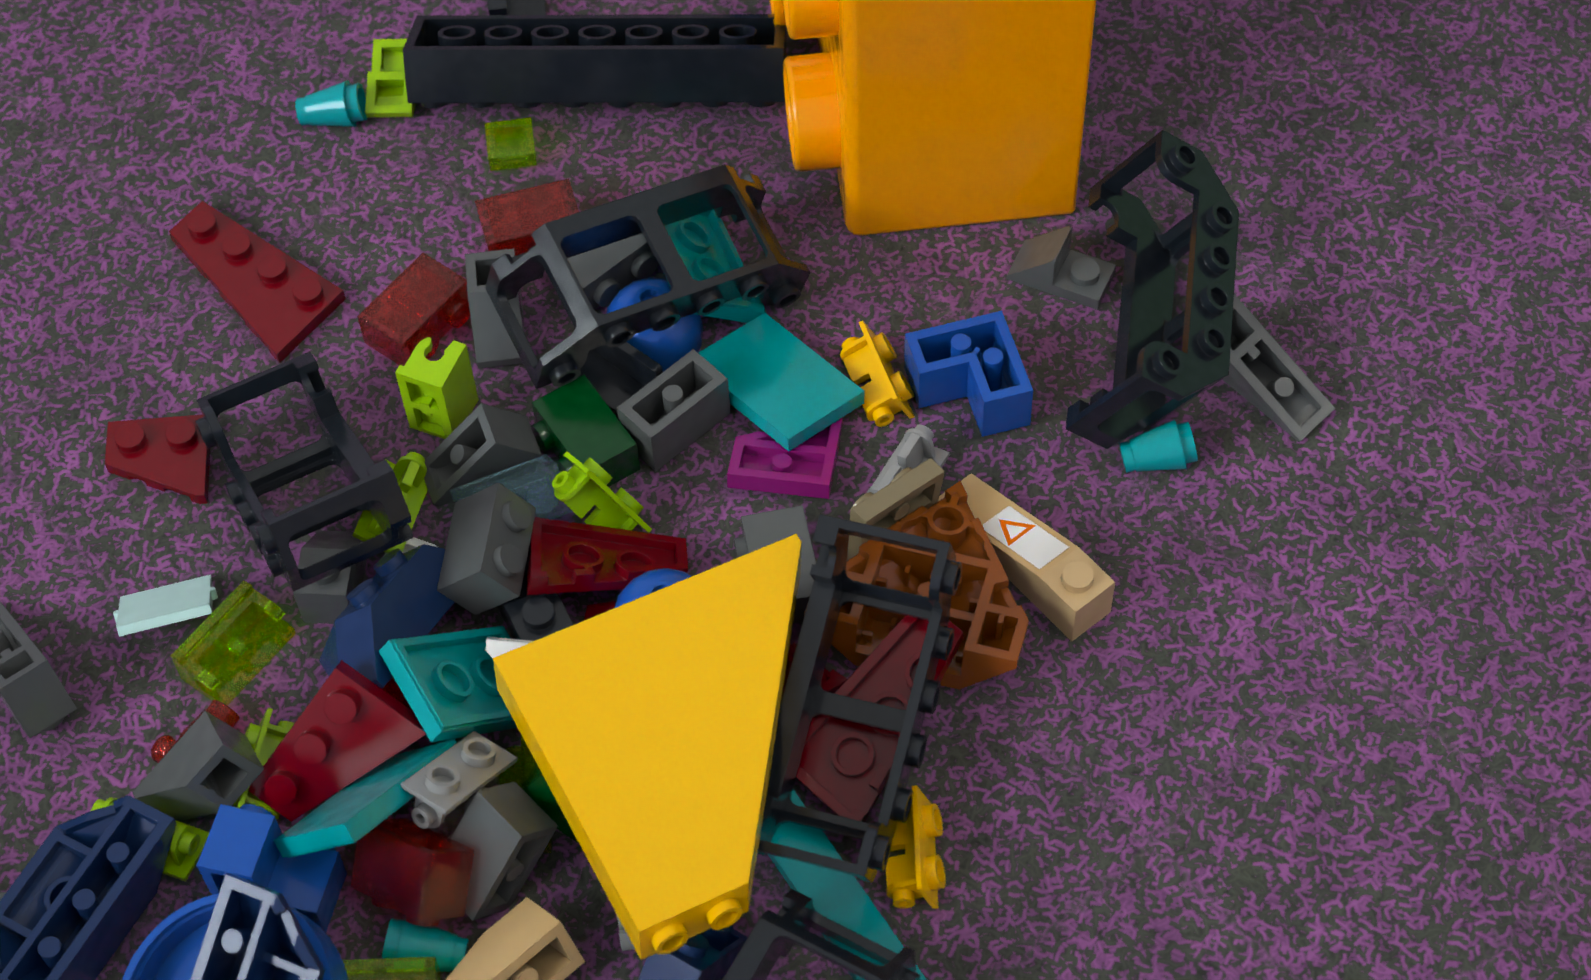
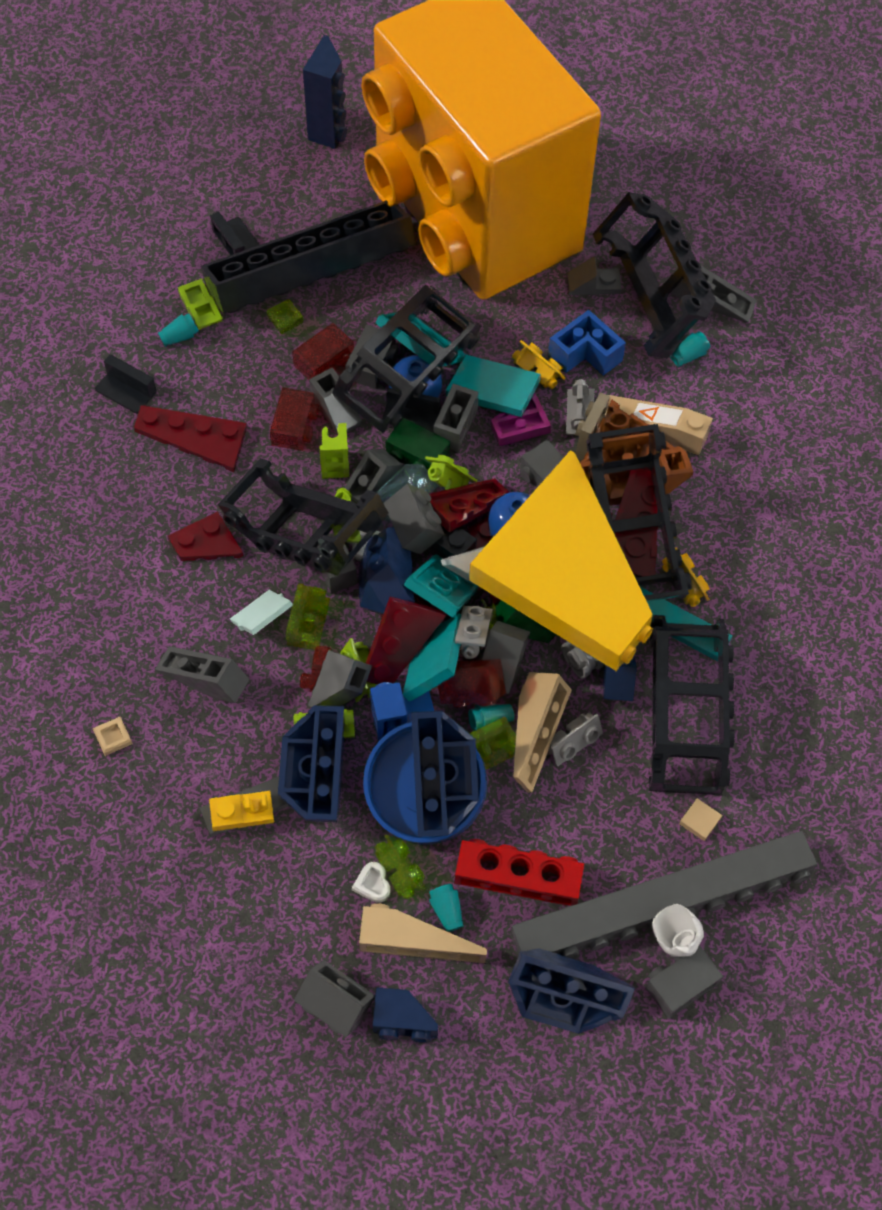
camera: 30 degrees left, 5 degrees up
(200, 162) = (126, 384): none -> black panel

